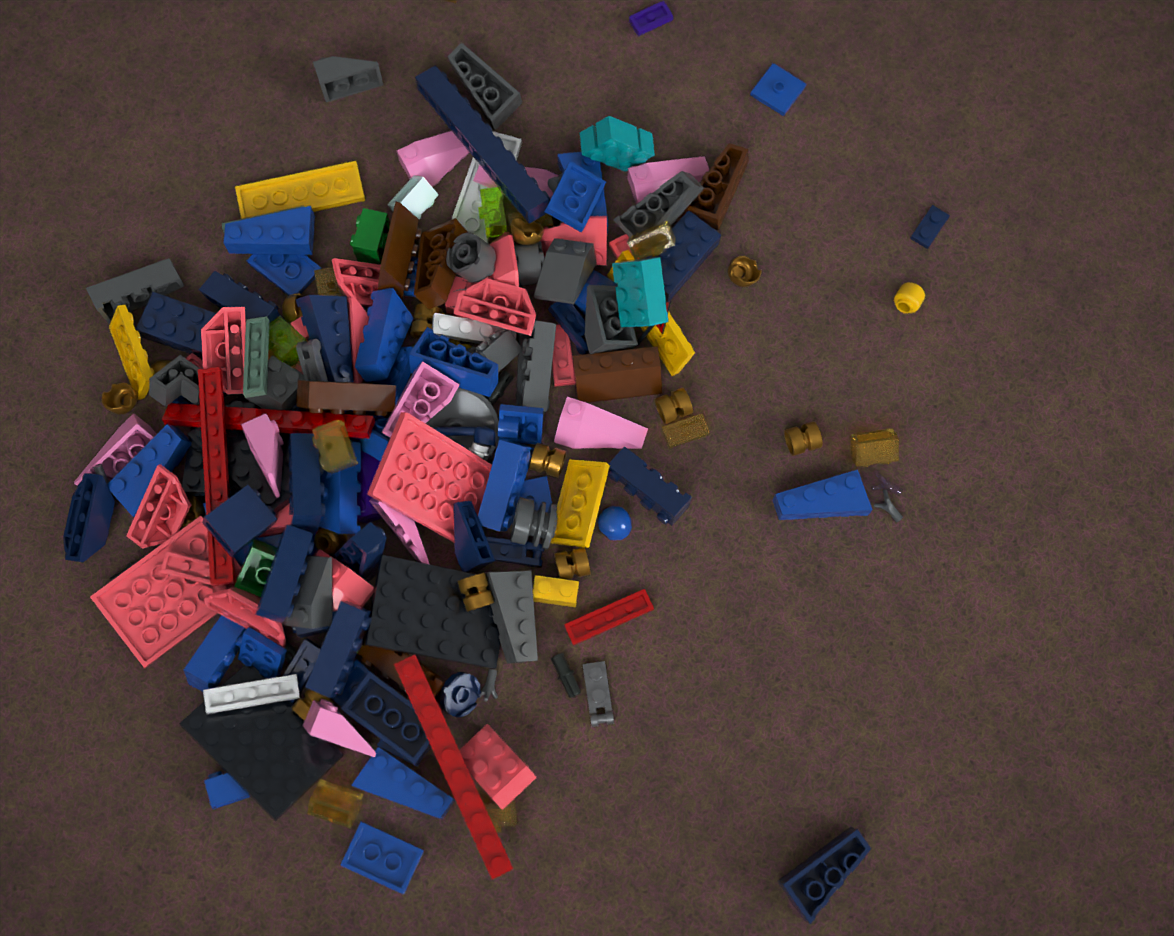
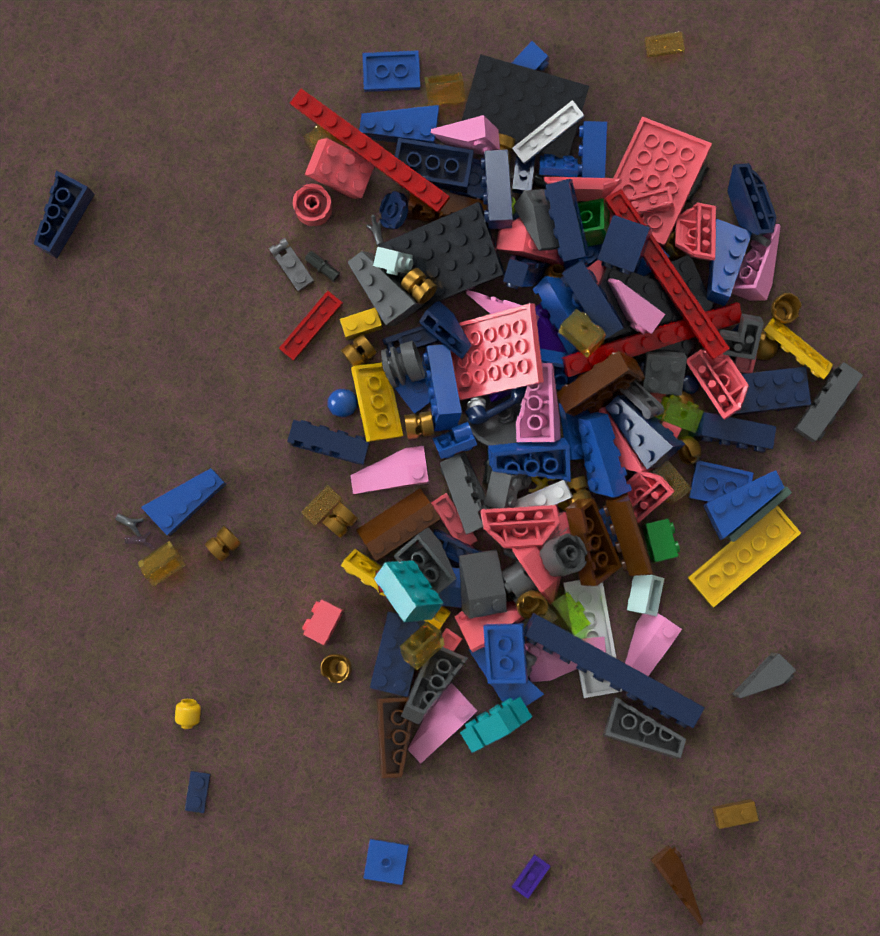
camera: 160 degrees right, 10 degrees up
(74, 737) = (664, 44): none -> clear yellow plate
(256, 357) = (690, 382): sand green tile -> none
(488, 631) = (393, 261): none -> light aqua brick
(541, 731) = (320, 212): none -> coral brick
(737, 315) = (323, 621): none -> coral brick

